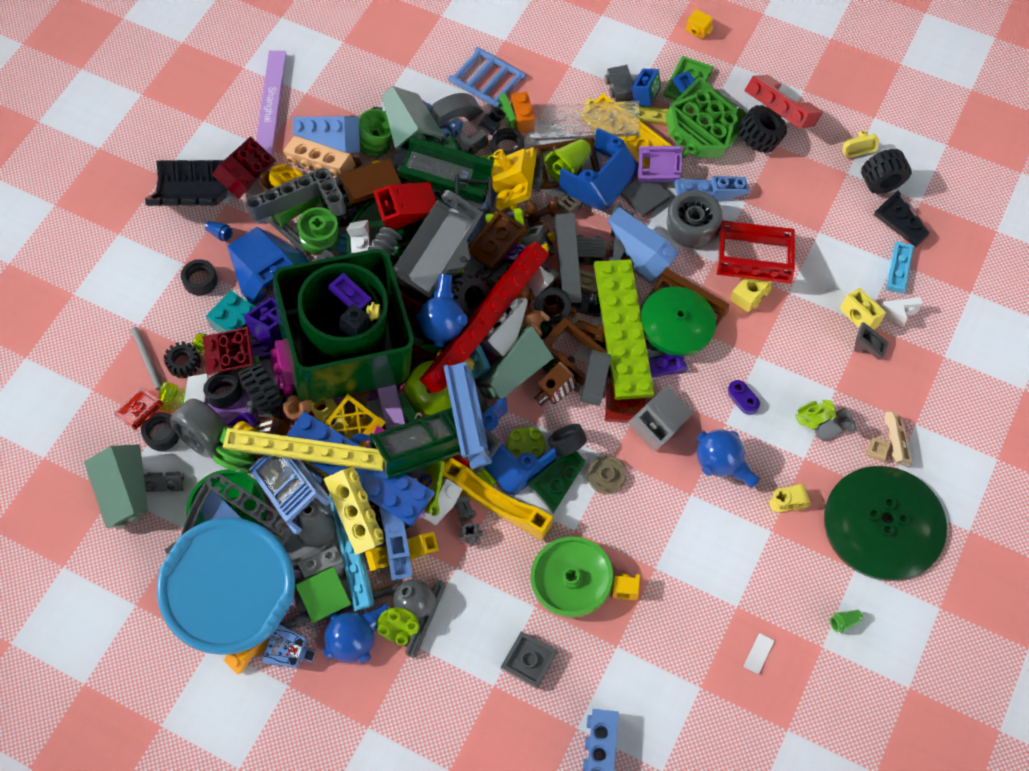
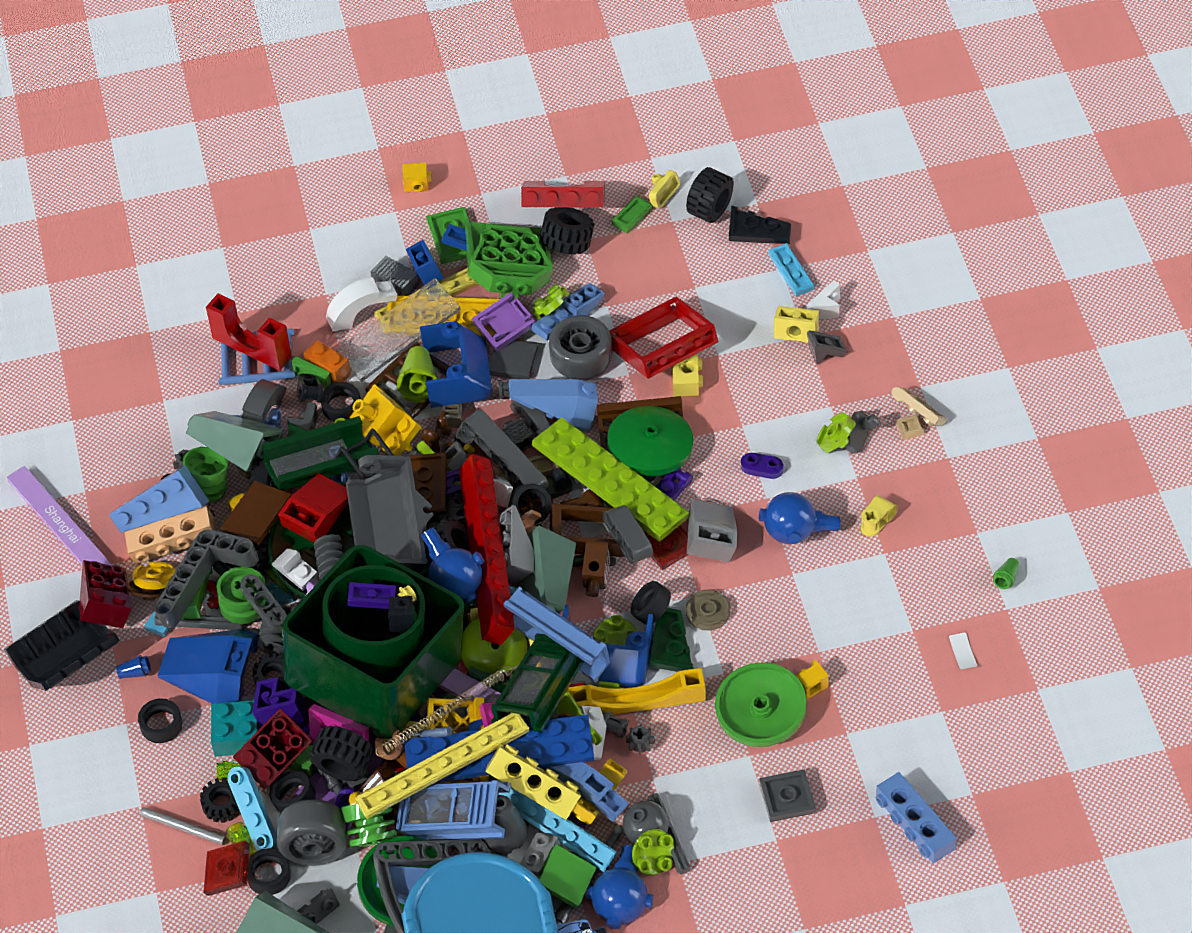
camera: 40 degrees left, 10 degrees down
(188, 377) = (252, 808): none -> medium azure plate
(314, 238) = (263, 592): none -> dark grey beam
(323, 418) = (437, 732): none -> sand blue bar
(348, 411) = (437, 713): none -> tan piece
(489, 64) = (268, 347): none -> red arch
(579, 79) = (355, 298): none -> white arch
(699, 172) = (549, 302): none -> lime plate
(822, 149) = (632, 214): none -> bright green tile
(881, 548) = (963, 503): dark green dish -> none

